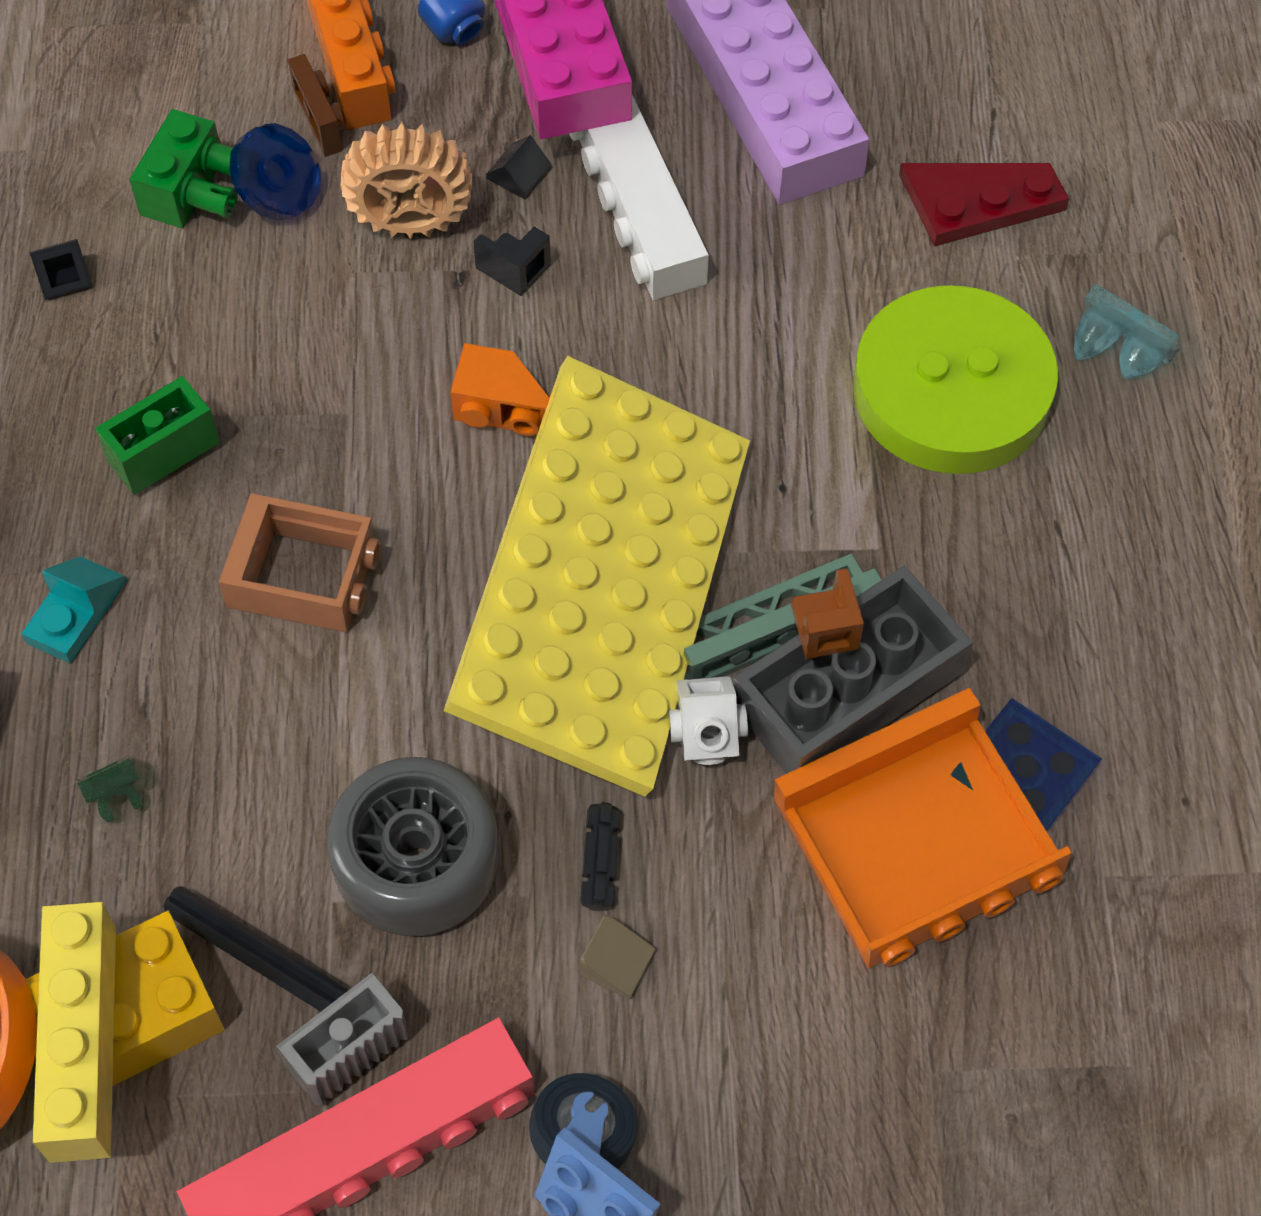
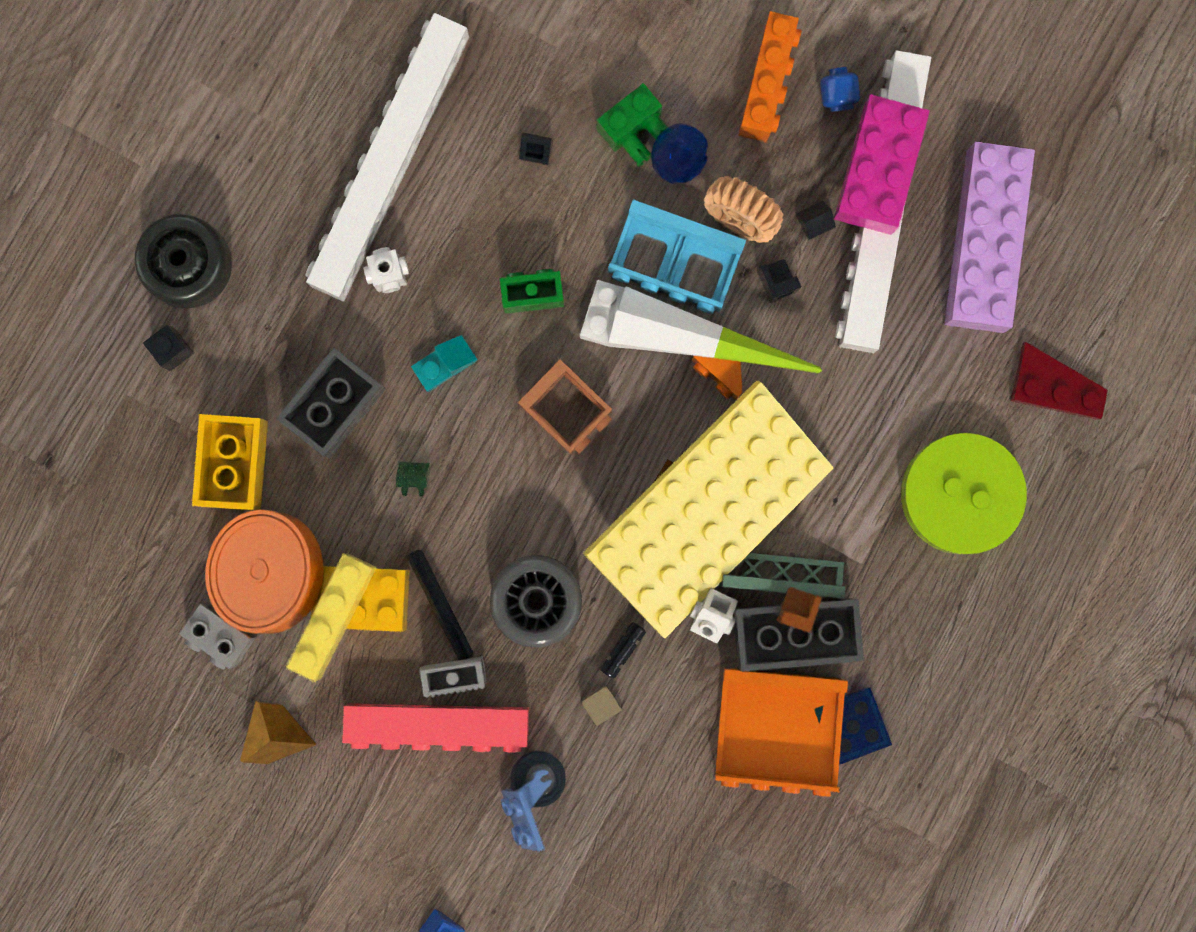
camera: 30 degrees right, 25 degrees up
(312, 94) = (730, 102): reddish brown plate -> none
(345, 273) = (682, 240): none -> medium azure window
(348, 394) = (640, 322): none -> white plate
(1108, 318) = (1065, 508): clear light blue tile -> none

